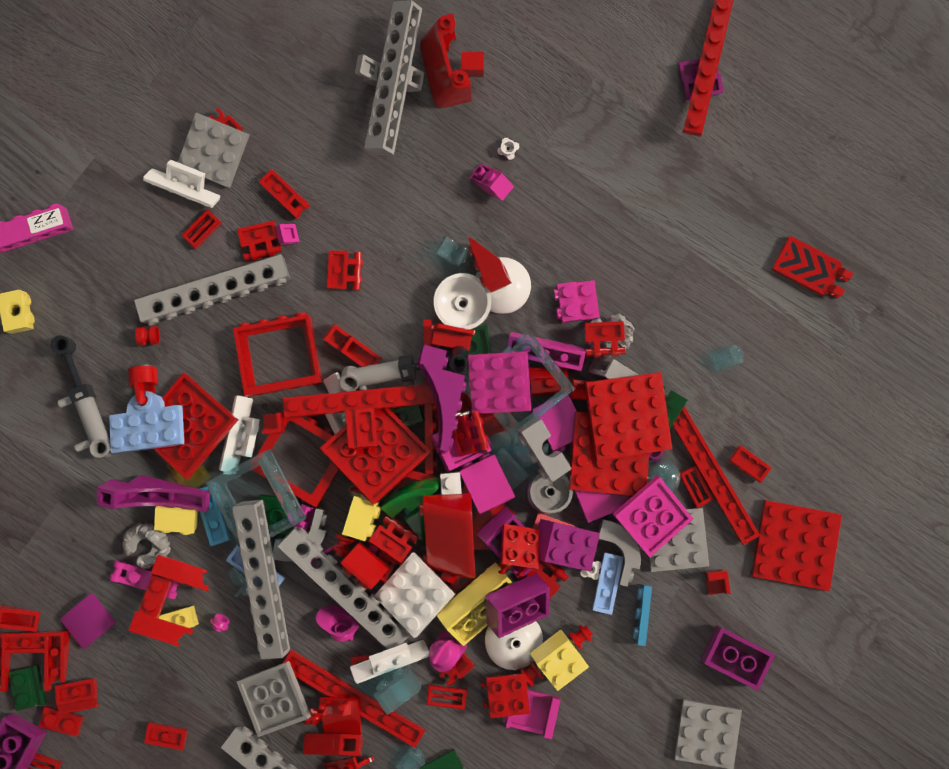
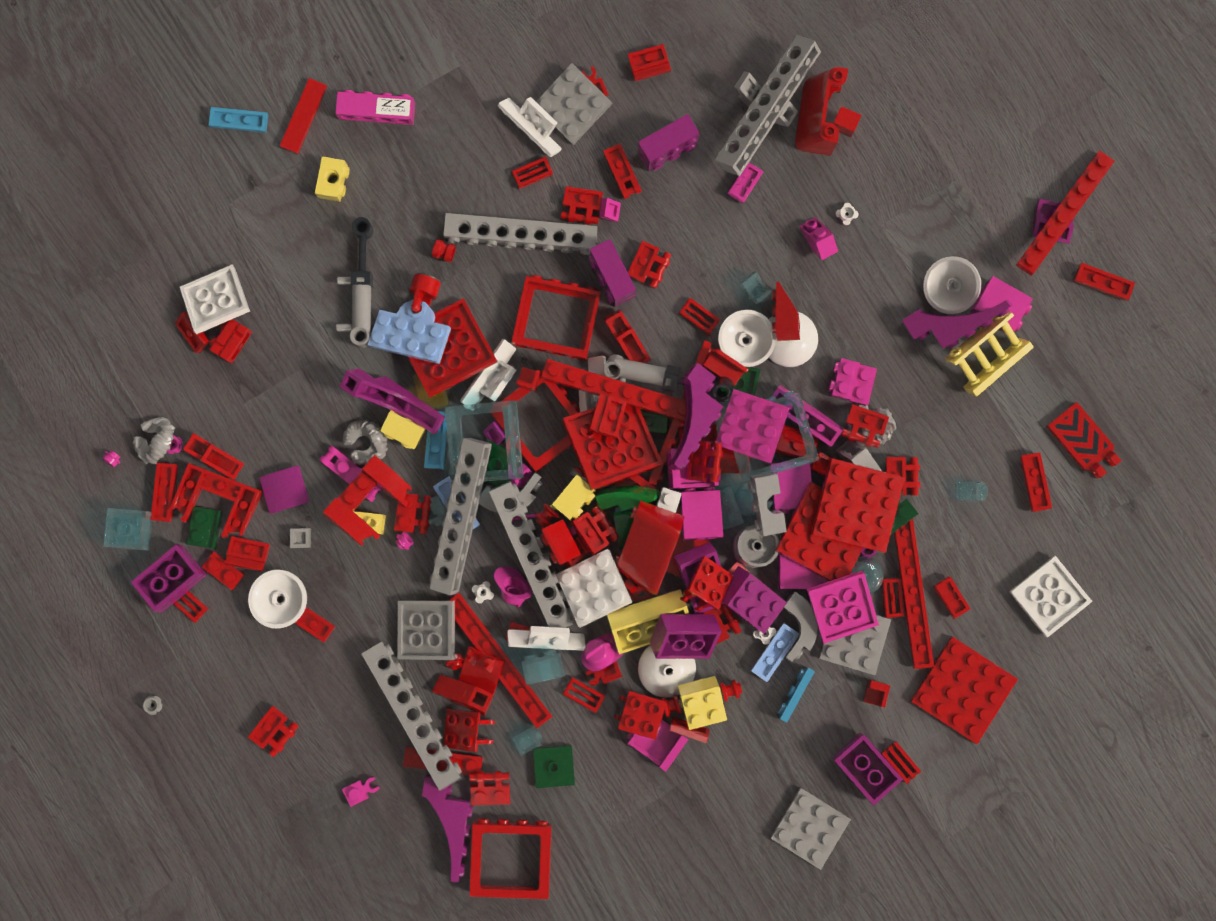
camera: 15 degrees right, 0 degrees up
(109, 728) = (265, 594): none -> white dish
(121, 660) = (300, 538): none -> light grey plate
(213, 599) = (406, 517): none -> red plate
(262, 486) = (495, 432): none -> dark pink plate
(268, 83) = (649, 62): none -> red plate
(311, 292) = (611, 273): none -> magenta brick
(313, 634) = (483, 587): none -> white plate
(315, 150) = (668, 143): none -> magenta brick
(398, 288) = (686, 307): none -> red tile
(402, 158) = (745, 183): none -> dark pink plate
(547, 690) = (680, 726): none -> red tile
(619, 176) = (940, 280): none -> white dish
(646, 215) = (951, 328): none -> magenta arch
(651, 364) = (898, 467): none -> red plate
(685, 174) = (996, 292): none -> dark pink brick
(706, 230) = (997, 367): none -> light yellow fence
(769, 114) = (1104, 281): none -> red plate
(781, 644) = (912, 775): none -> red tile
(783, 325) = (1035, 482): none -> red plate
(840, 425) = (1050, 596): none -> white plate

